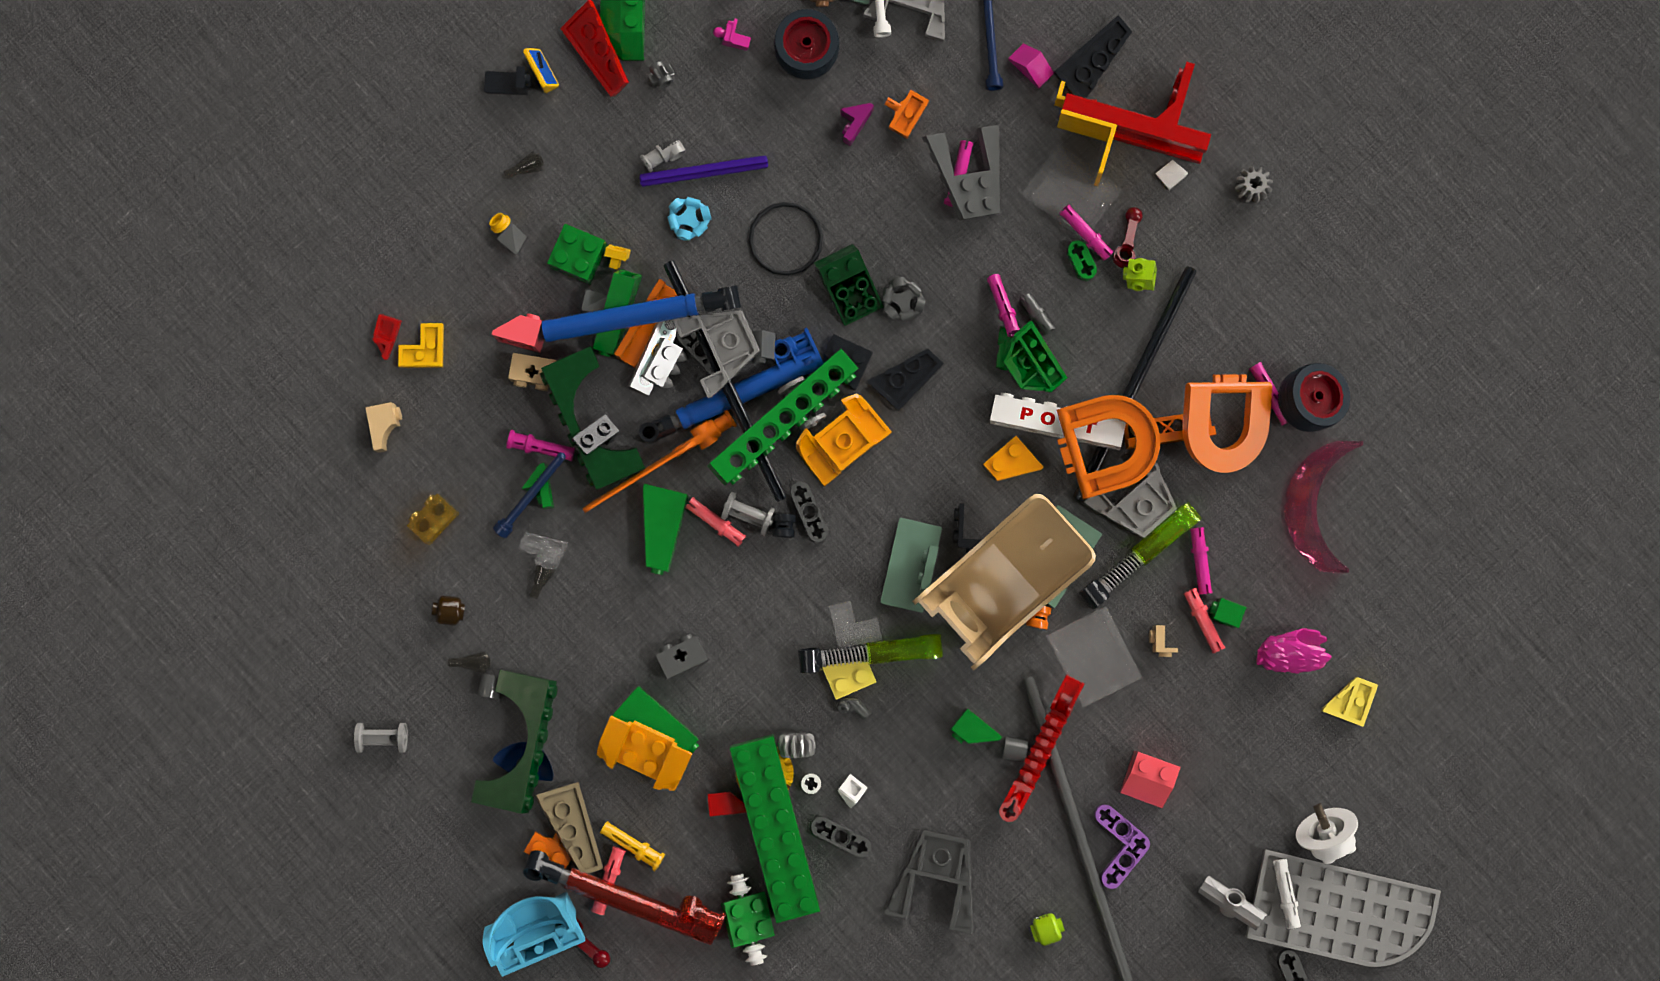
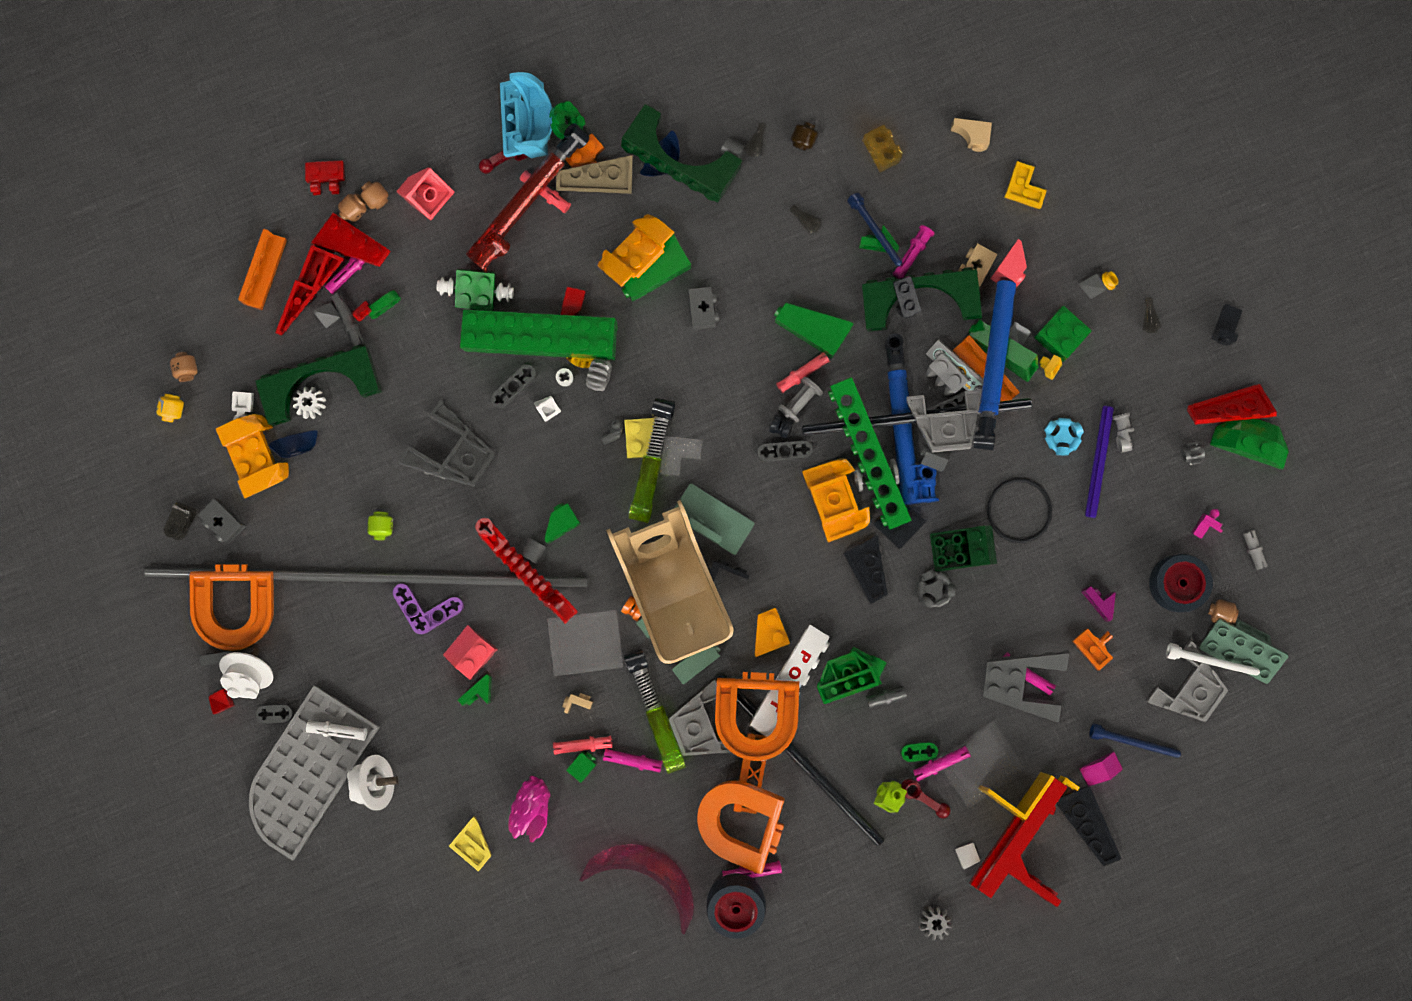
camera: 110 degrees right, 0 degrees up
(380, 737) = (721, 50): light grey hose -> none
(386, 334) = (1046, 160): red slope -> none
(517, 896) = (562, 111): none -> green plate
(541, 69) = (1229, 356): slope -> none
(548, 550) = (825, 229): clear plate -> none
(641, 851) = (559, 224): yellow pin -> none
(703, 435) = (877, 386): orange piece -> none
(1006, 313) = (922, 671): dark pink pin -> none
(1183, 751) = (482, 687): none -> green slope
(1232, 903) = (354, 676): light grey piece -> none

